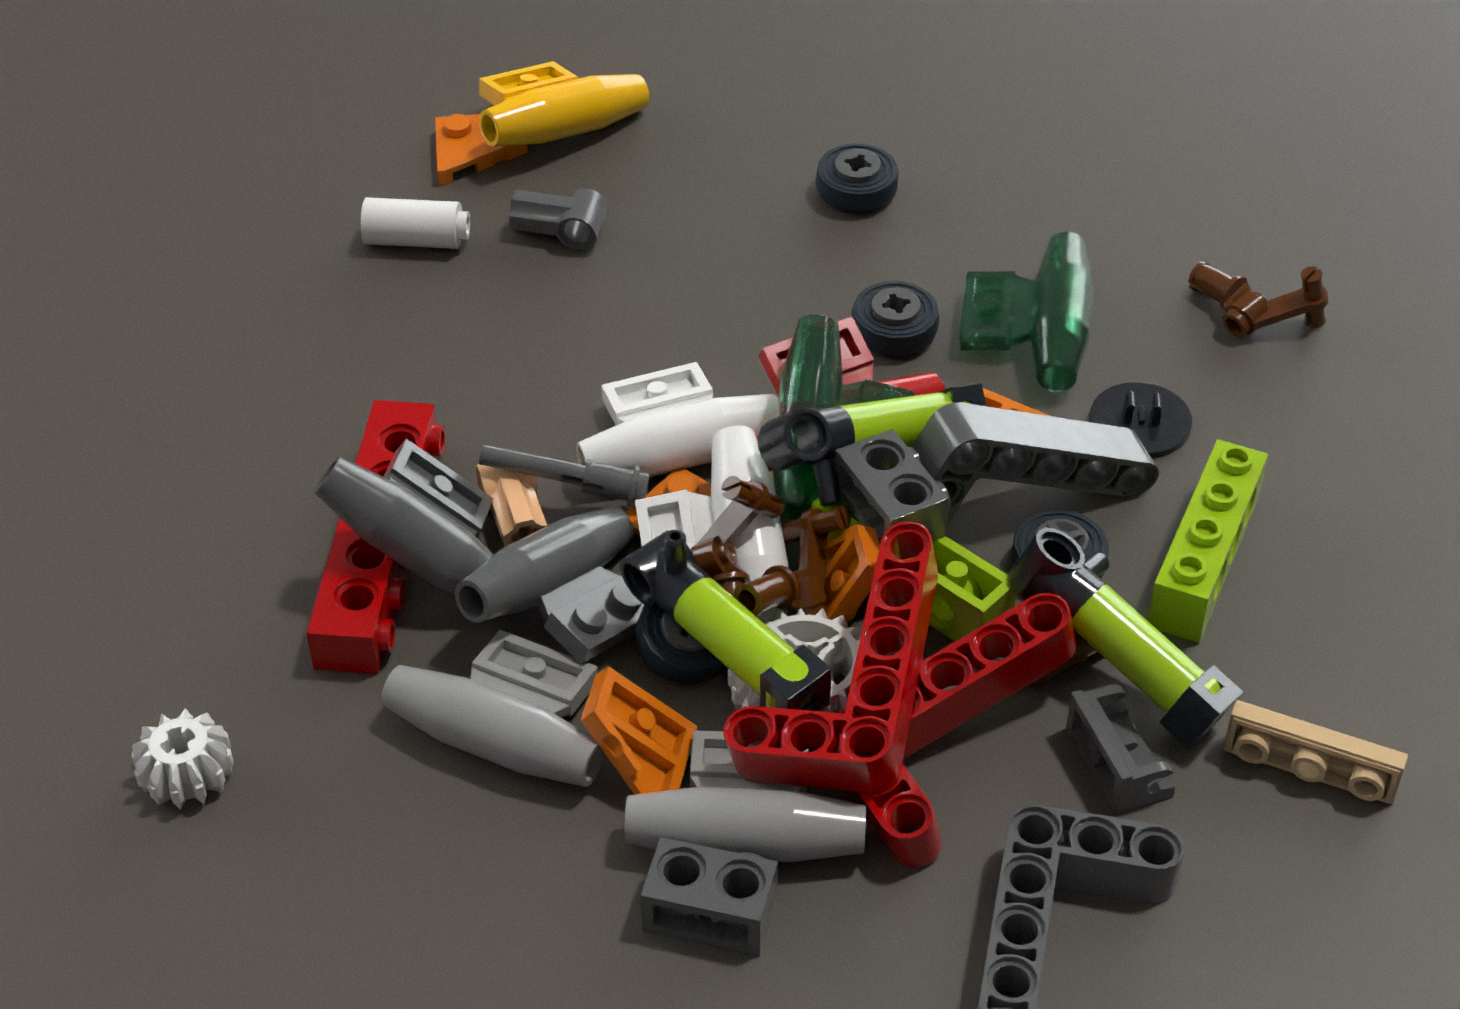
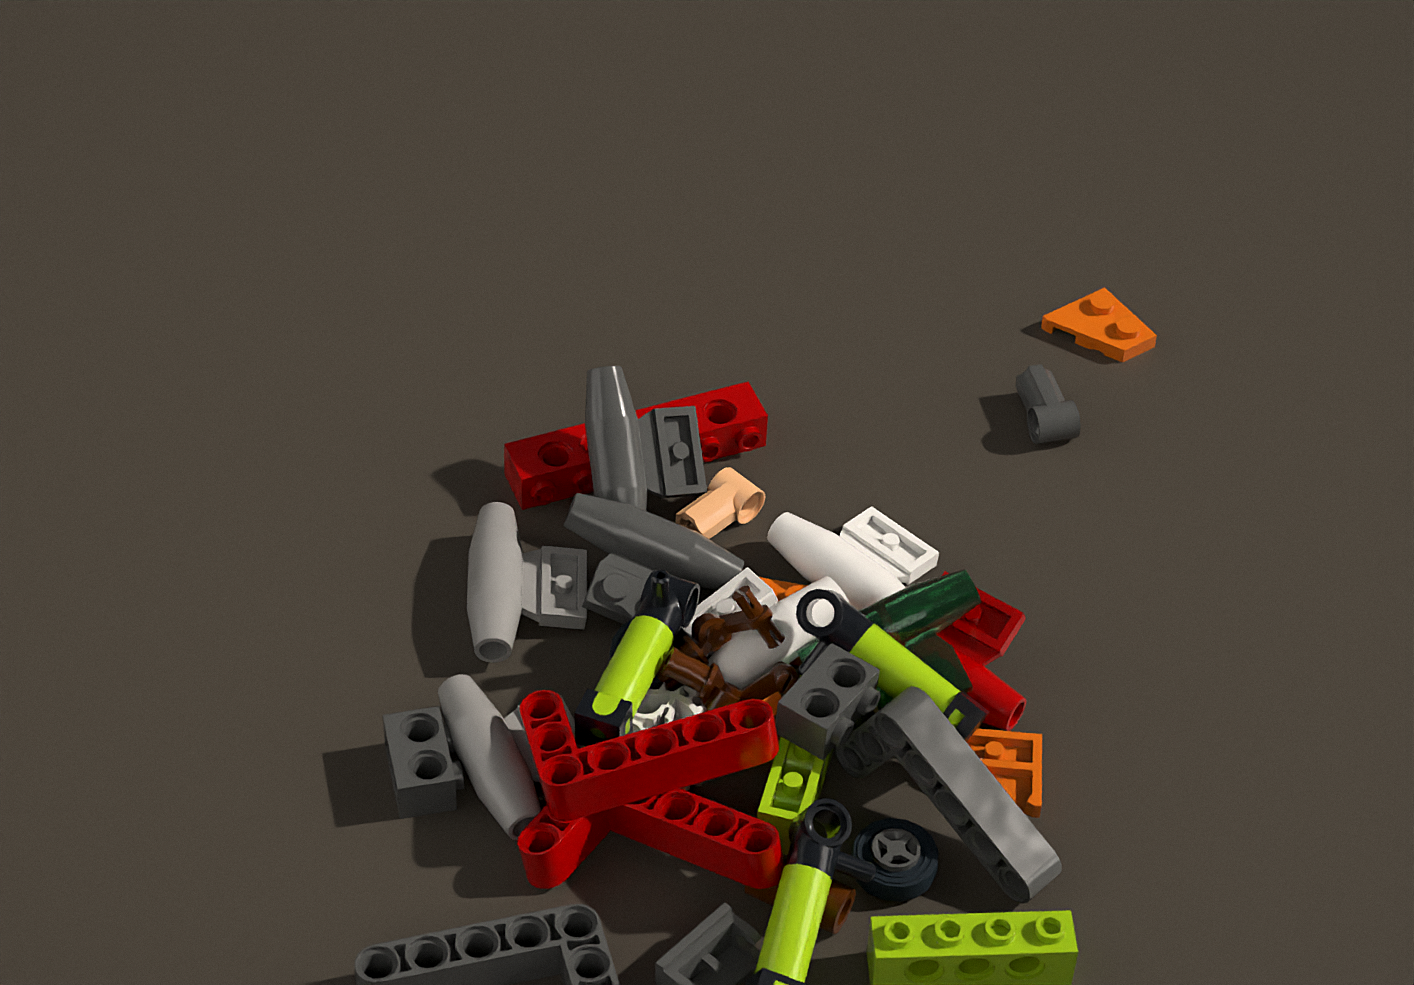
camera: 60 degrees right, 0 degrees up
(182, 758) = (373, 437): white gear -> none
(414, 223) = (969, 326): white brick -> none
(554, 104) = (1171, 345): yellow plate -> none
(593, 476) = (769, 561): dark grey pin -> none
(638, 733) = (529, 660): orange wing -> none
(857, 177) = (1248, 573): black wheel -> none
(896, 317) = (1091, 660): black wheel -> none
(1050, 311) = (1167, 750): clear green plate -> none
(1150, 410) = (1104, 873): black piece -> none
(1250, 310) = (1290, 902): reddish brown pin -> none

